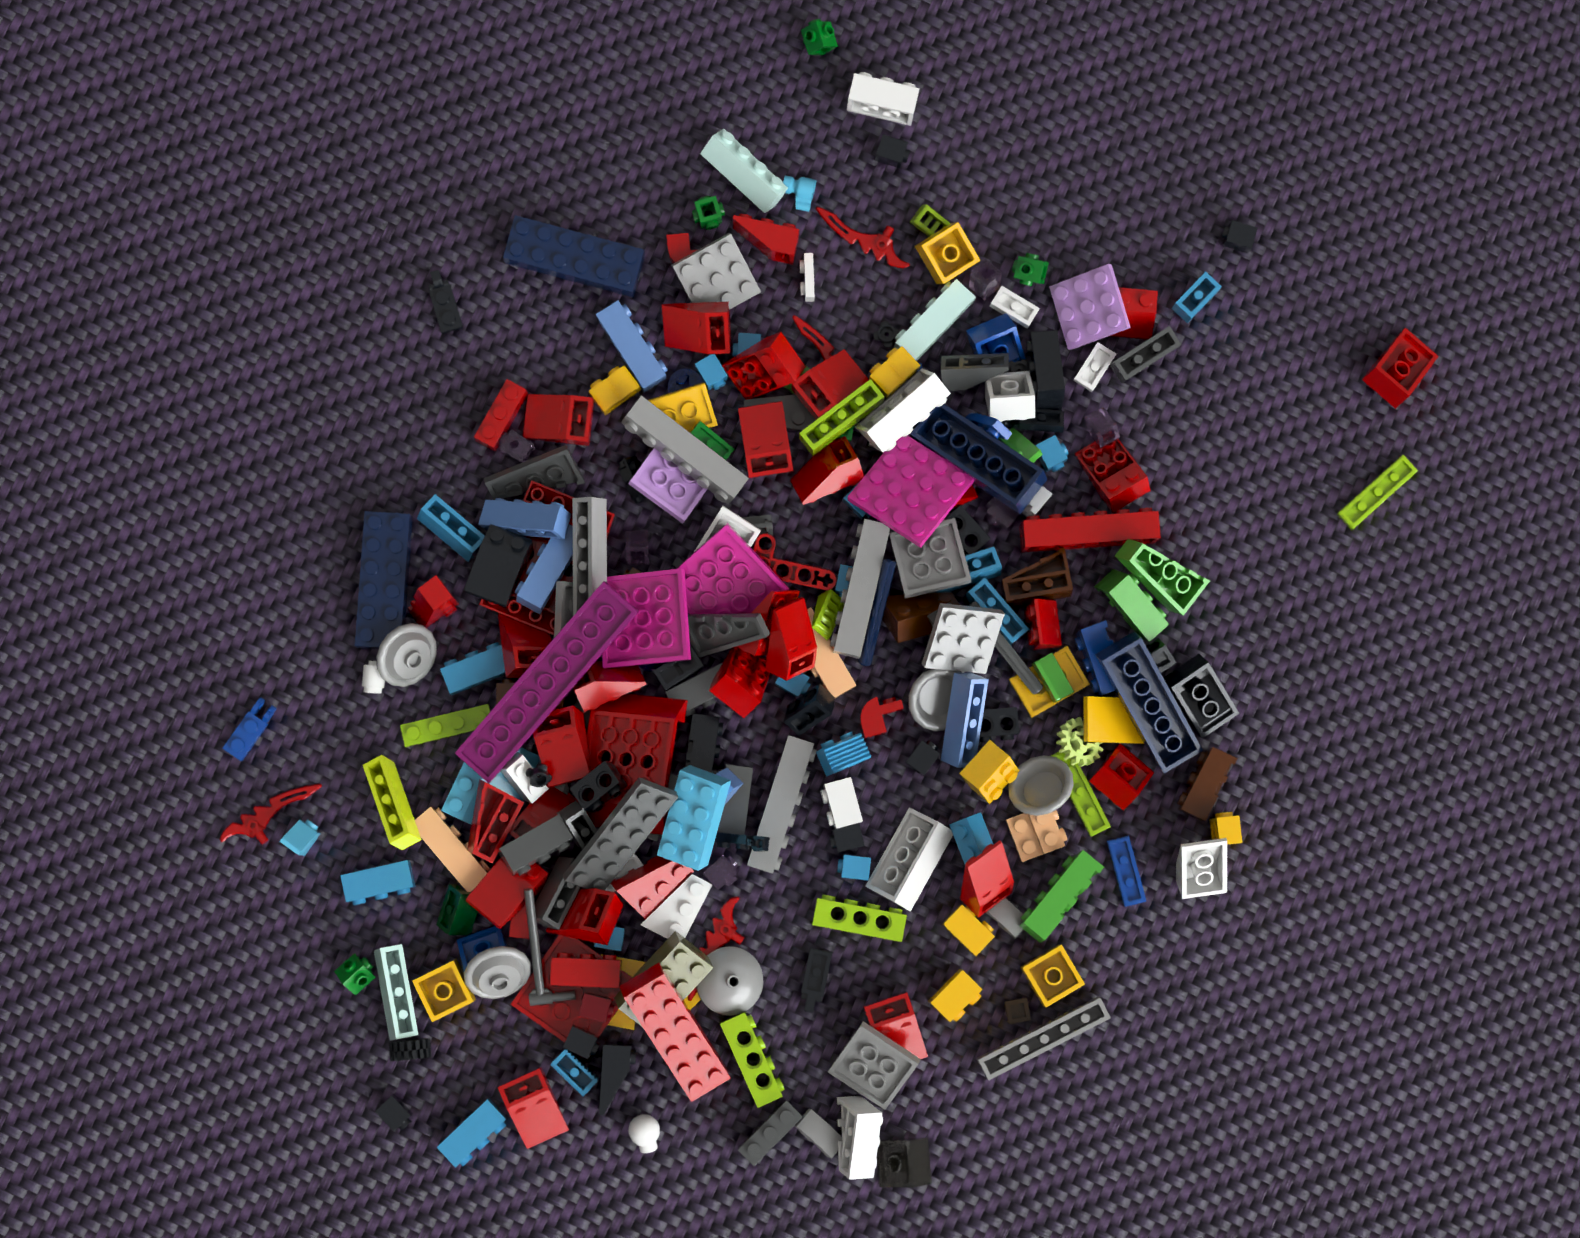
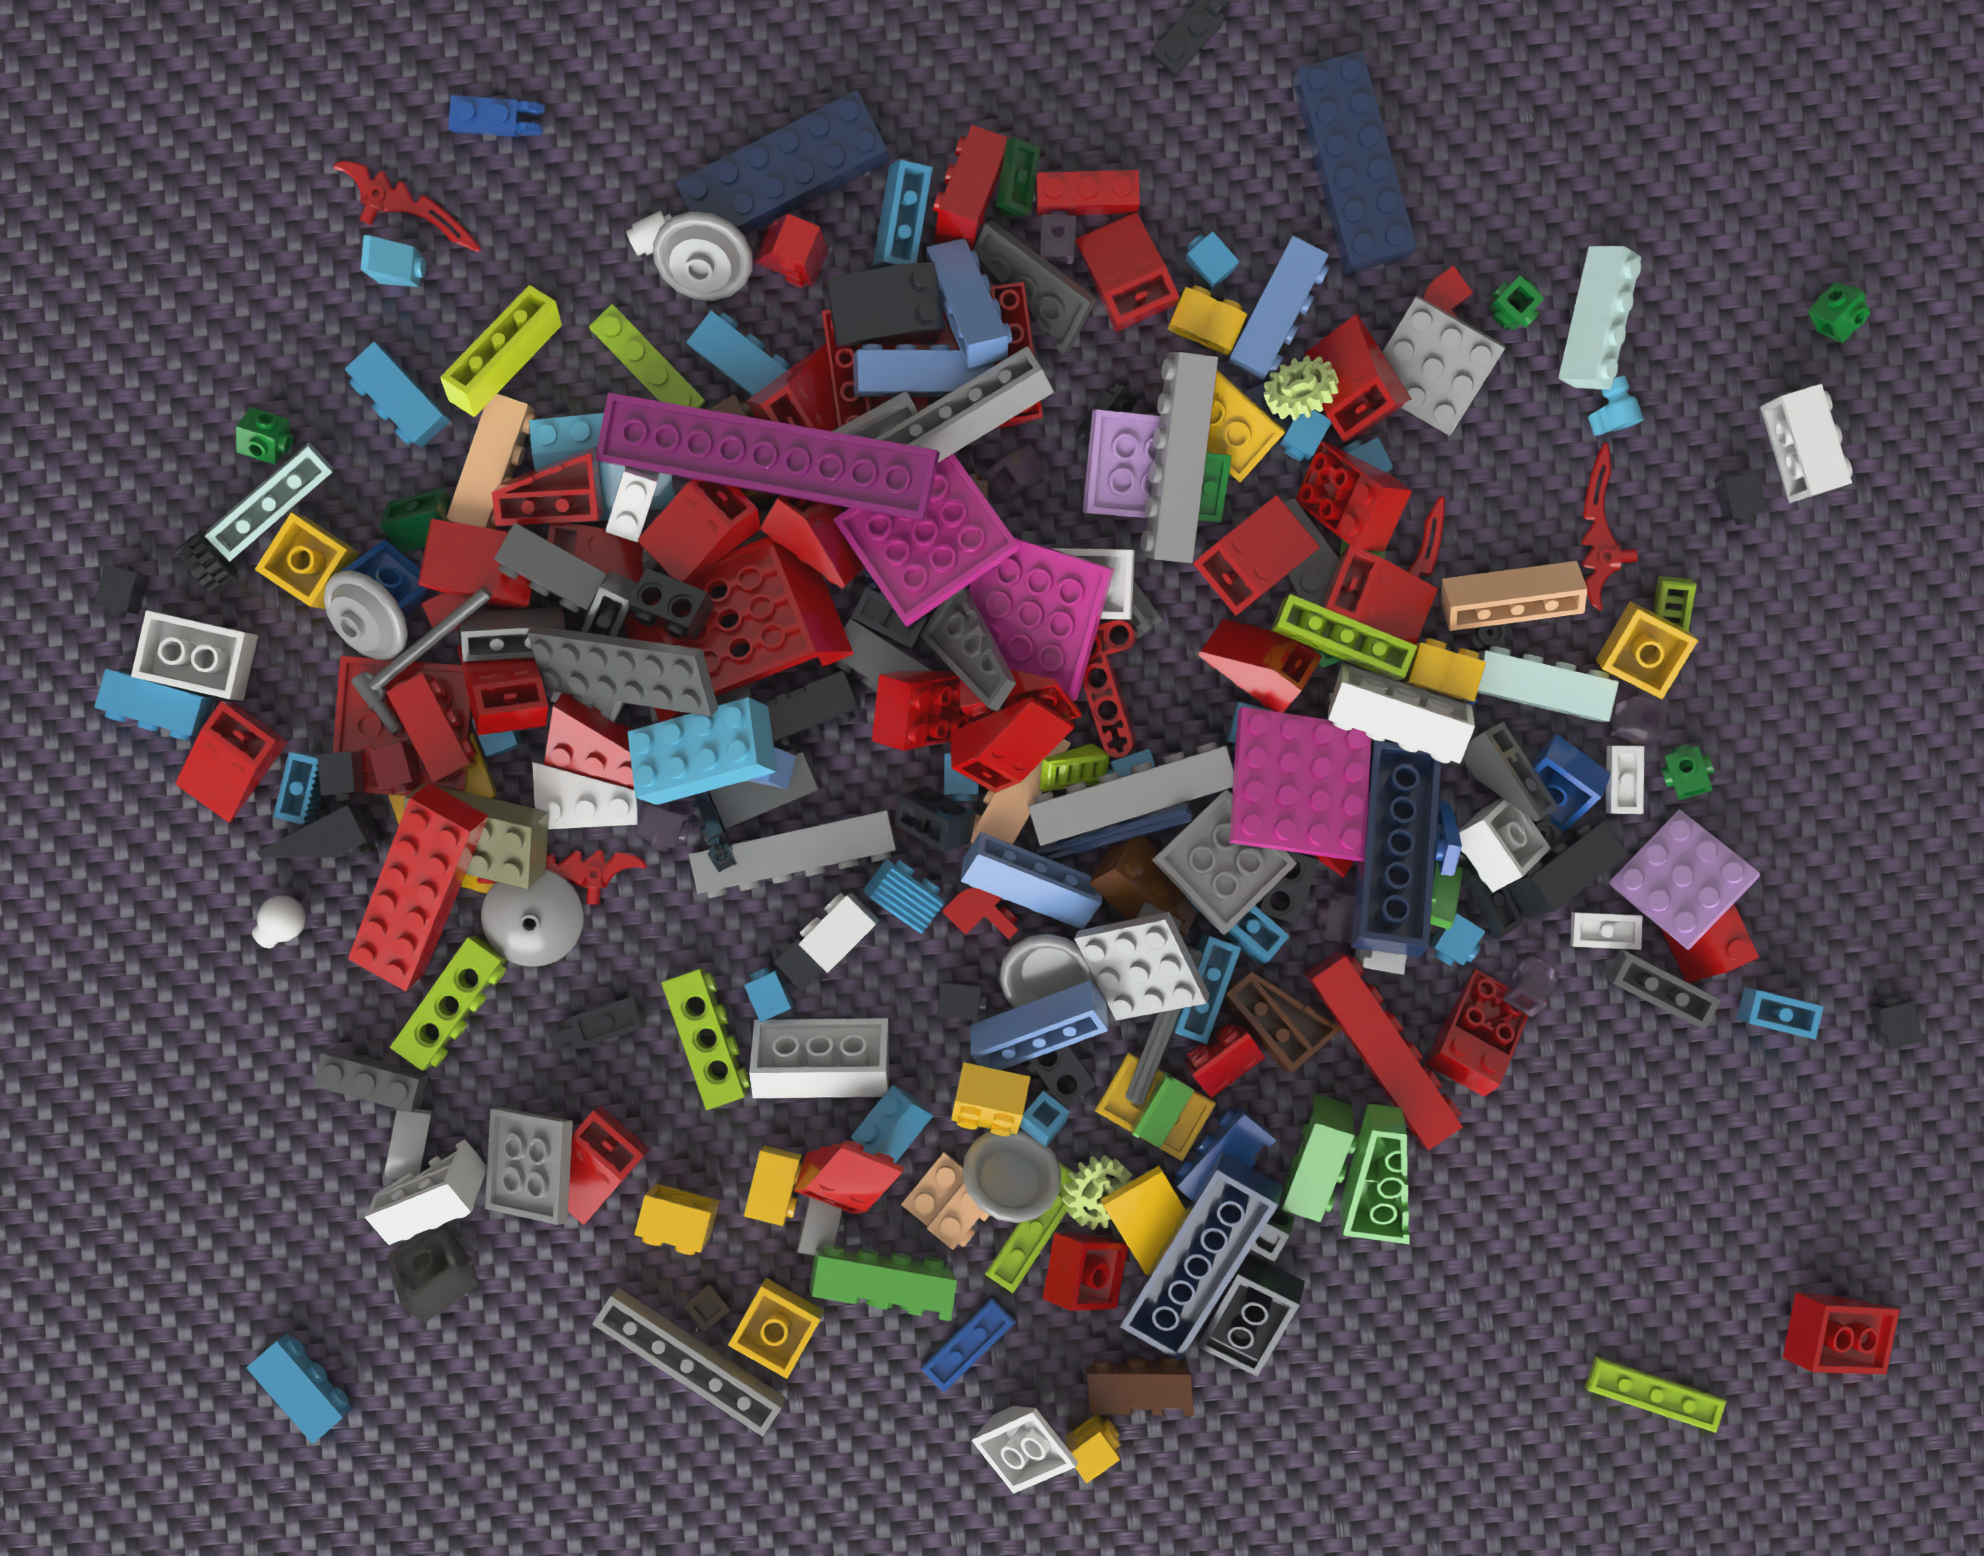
camera: 70 degrees right, 5 degrees up
(458, 479) = (969, 186): none -> red wedge
(459, 1090) = (194, 655): none -> white brick
(470, 449) = (1018, 178): none -> dark green panel
(542, 779) = (641, 519): black plate -> none
(580, 368) = (1210, 259): none -> dark azure brick
(685, 359) = (1301, 387): none -> yellowish green gear
(773, 240) = (1529, 408): red slope -> none
(807, 286) = (1517, 477): white plate -> none
(873, 309) = (1513, 595): none -> light nougat brick
(877, 675) = (1030, 880): none -> medium blue brick
(1019, 748) = (1044, 1118): none -> dark azure brick

